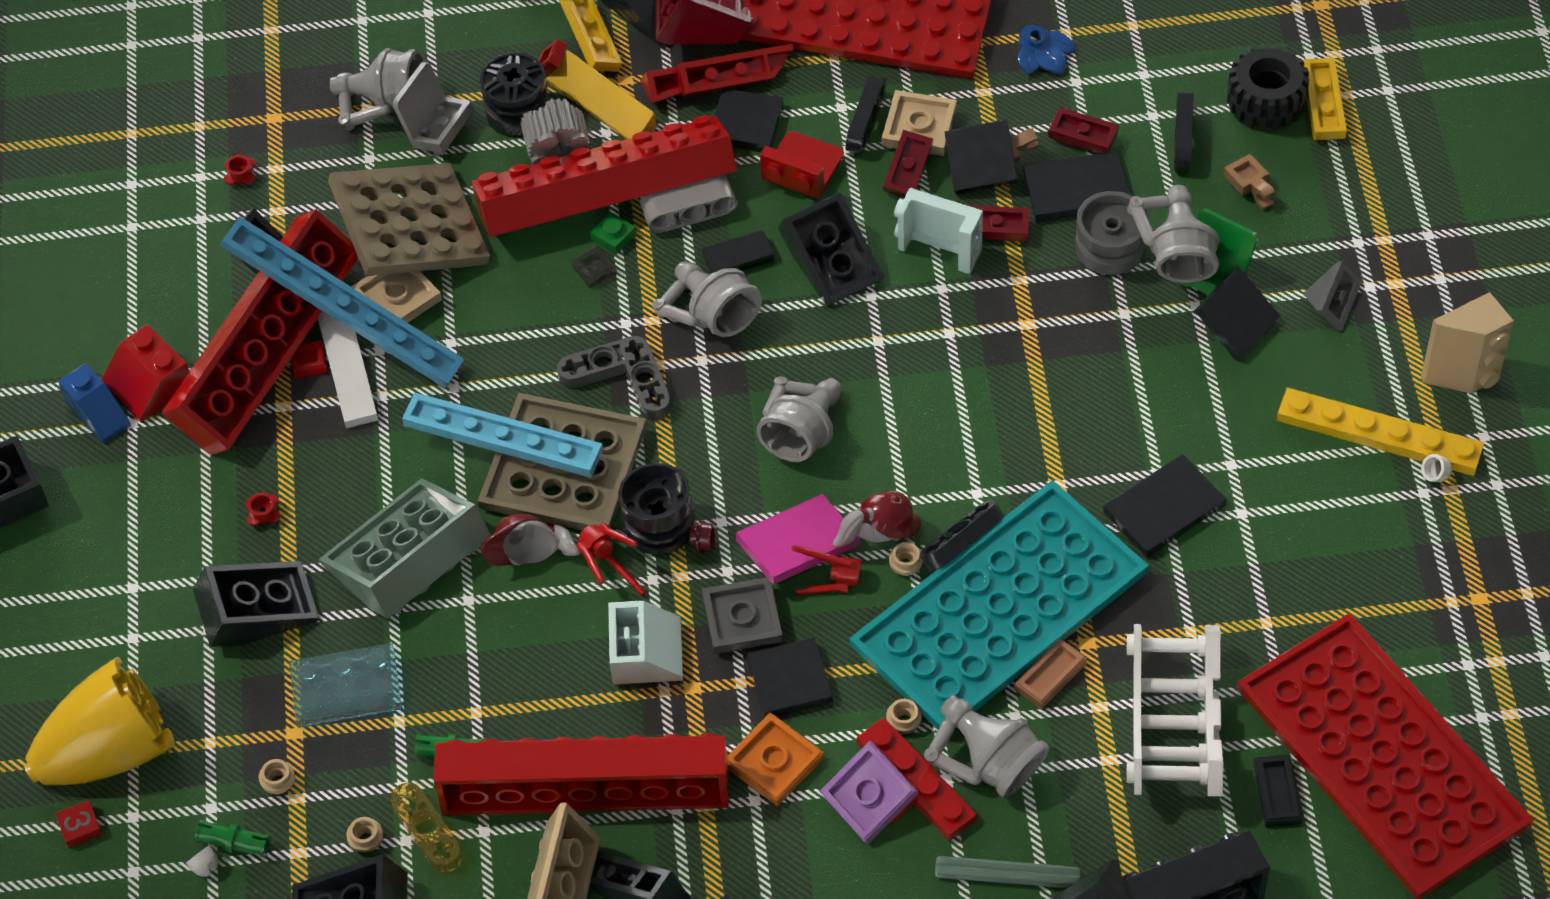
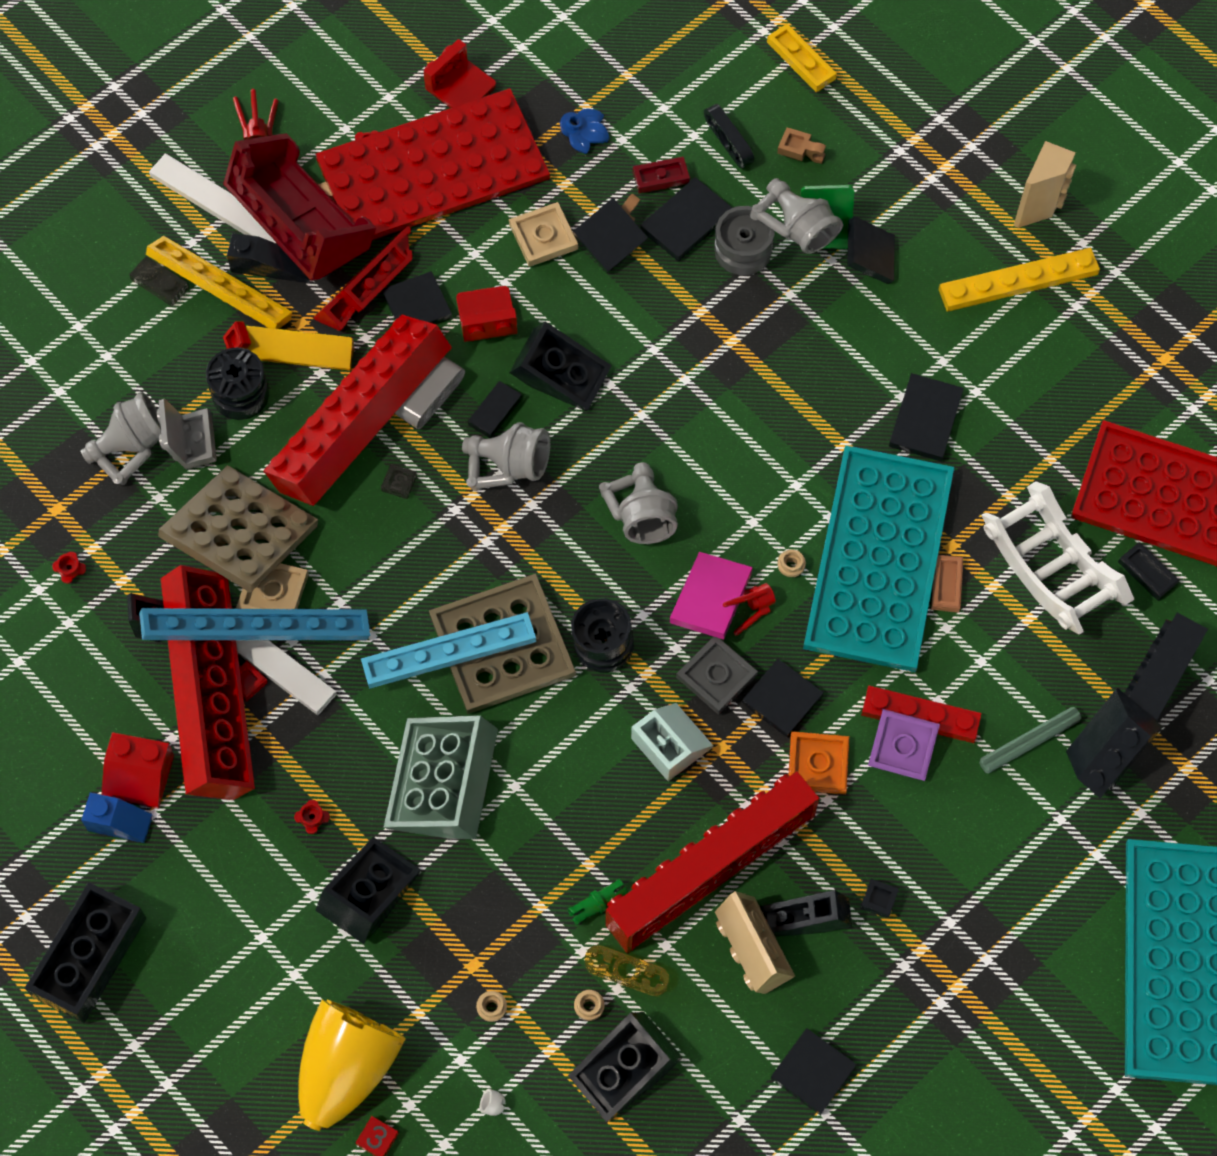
camera: 40 degrees left, 10 degrees up
(232, 838) = (499, 1072): green pin -> none
(345, 685) = (482, 906): clear light blue plate -> none
(526, 540) = (527, 715): light grey hair -> none
(554, 130) = (295, 397): light grey brick -> none
(597, 543) = (578, 686): red plant -> none
(613, 233) = (391, 447): green plate -> none
(622, 362) = (481, 541): dark grey beam -> none
(703, 536) = (643, 634): dark red plate -> none
(865, 115) = (501, 250): black beam -> none
(880, 519) = (758, 547): dark red hair -> none
(904, 707) = (879, 668): tan plate -> none
(908, 163) = (563, 270): dark red plate -> none
(940, 224) = (628, 303): light aqua panel -> none
(961, 535) = (818, 505): black beam -> none
(1000, 749) = (967, 659): light grey piece -> none
(1004, 223) = (656, 279): dark red plate -> none
(1265, 106) = (762, 54): black tyre -> none
(1334, 294) = (916, 198): dark grey slope -> none
(1433, 470) = (1072, 286): white hinge -> none

